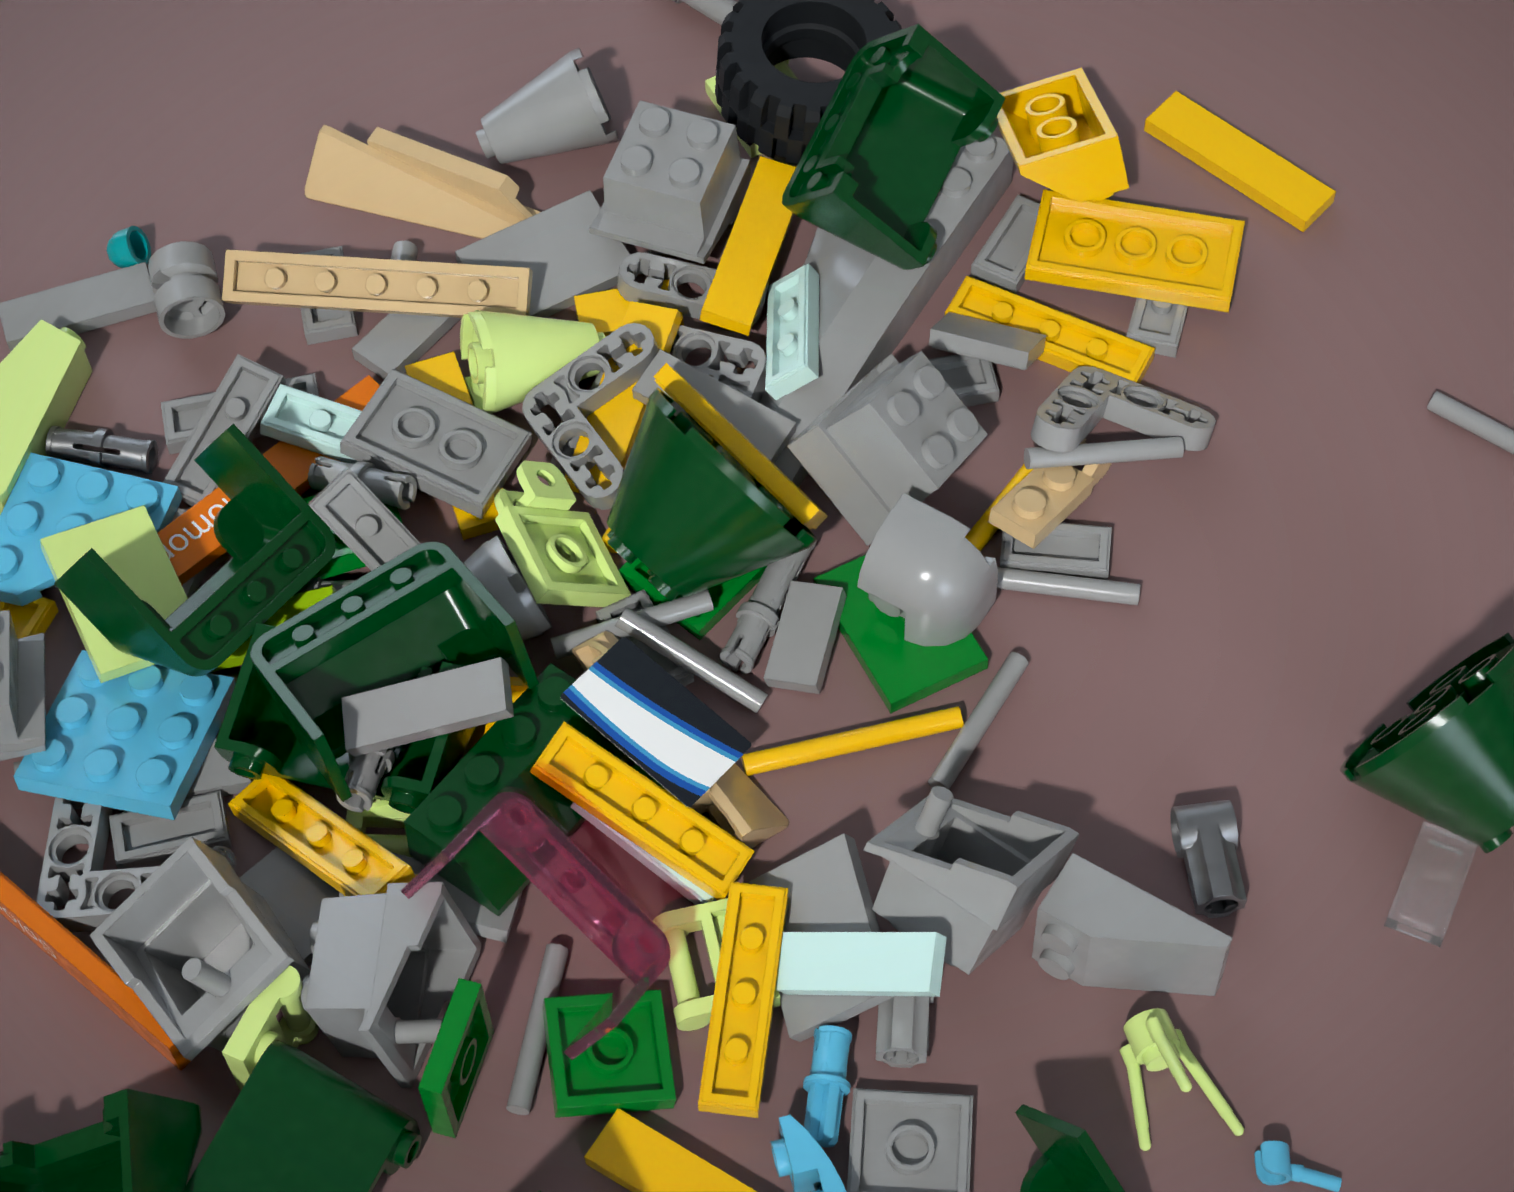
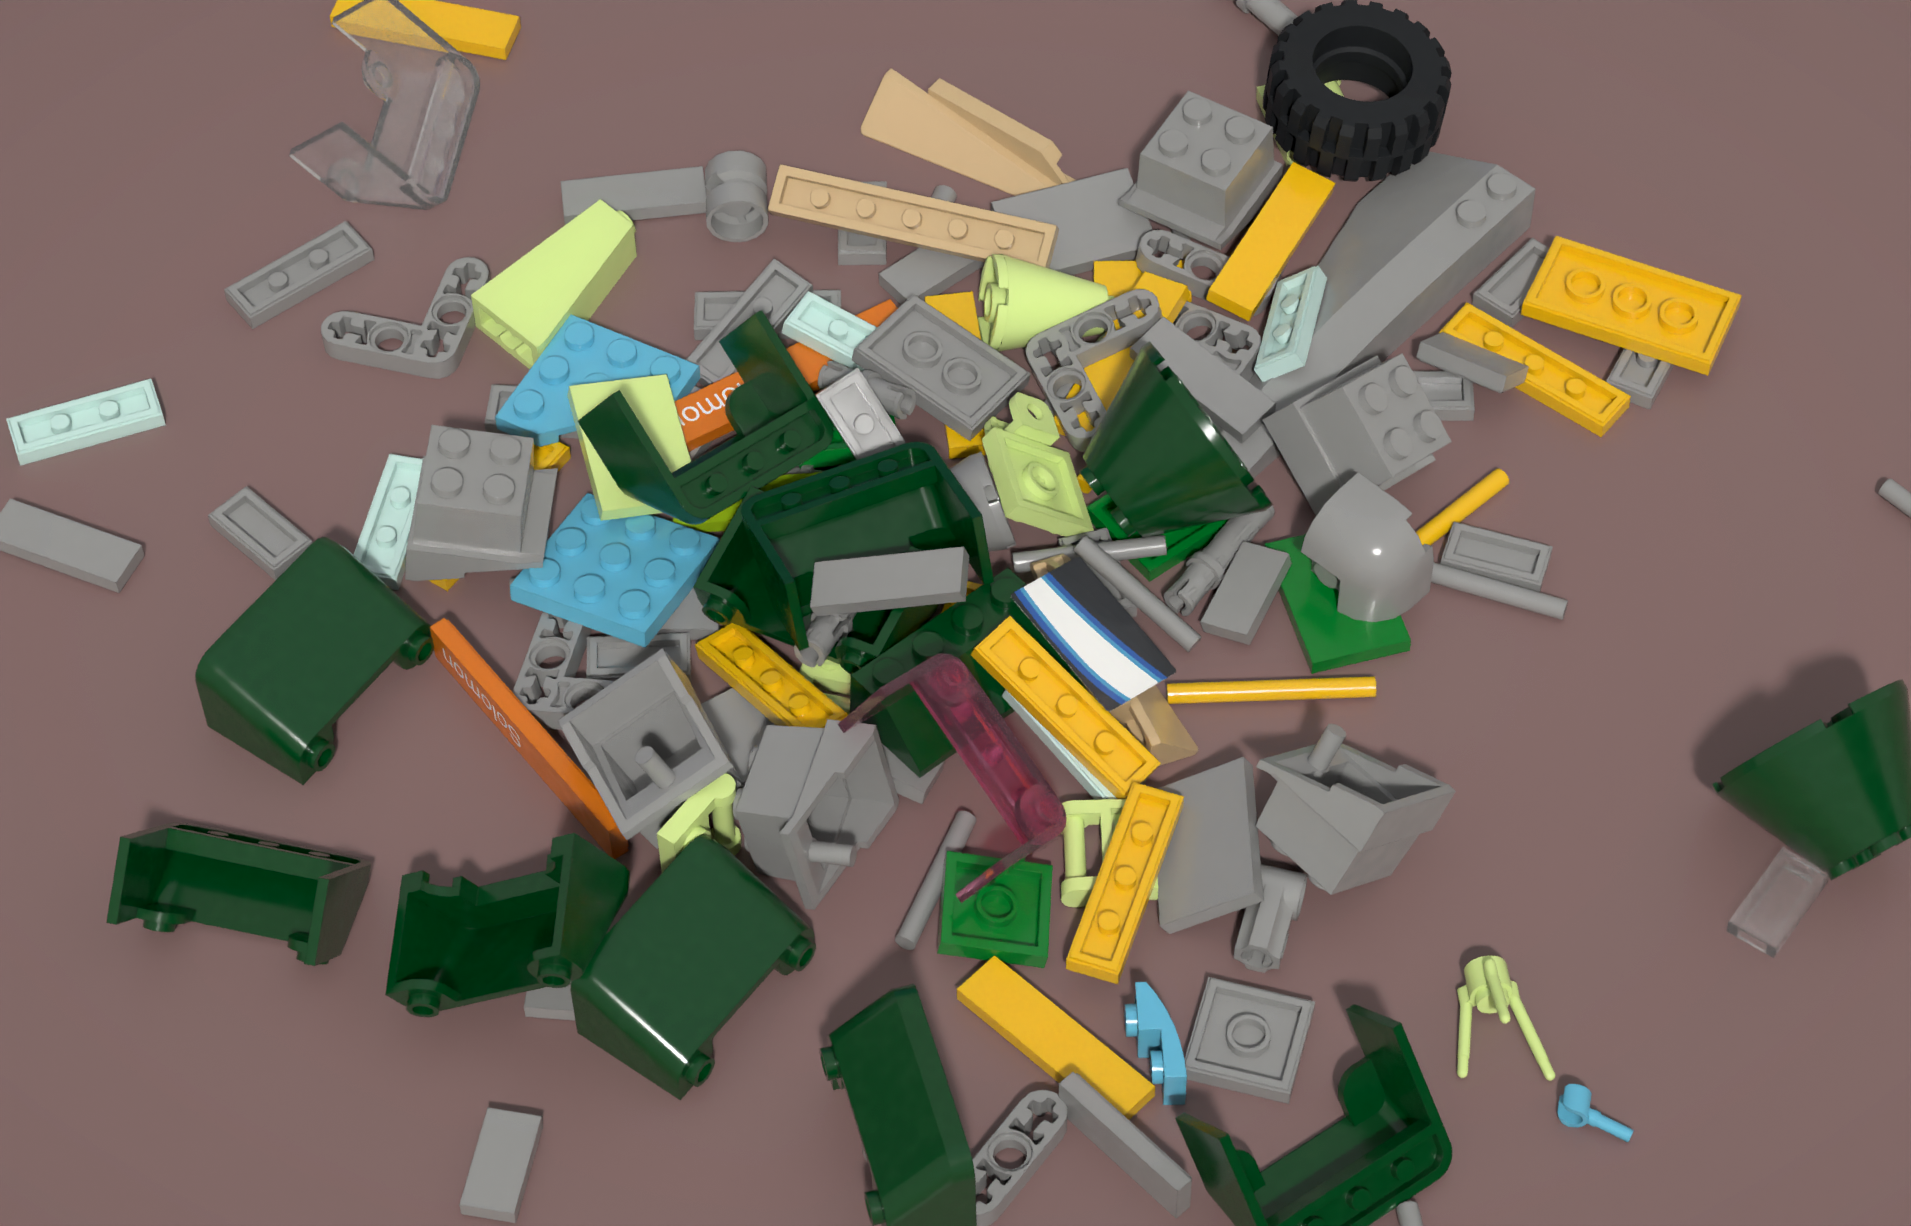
camera: 10 degrees right, 5 degrees down
(129, 247) = (689, 150): teal hinge -> none
(133, 454) = (662, 333): flat silver pin -> none
(456, 1058) = (859, 884): green tile -> none
(548, 115) = (1102, 94): light grey cone -> none
(739, 447) = (1218, 413): yellow tile -> none
(827, 1083) = (1186, 967): medium azure axle -> none
(861, 963) = (1235, 866): light aqua tile -> none
(891, 145) = (1415, 168): dark green windscreen -> none
(979, 721) = (1394, 691): light grey bar -> none
(1044, 501) = (1502, 505): tan hinge -> none
(1063, 137) = (1581, 189): yellow slope -> none
(1097, 394) = (1563, 426): light grey beam -> none
(1106, 453) = (1558, 477): light grey bar -> none
(1123, 937) = (1479, 890): light grey slope -> none
(1208, 843) = (1577, 832): flat silver piece -> none
(1239, 161) = (1753, 242): yellow tile -> none

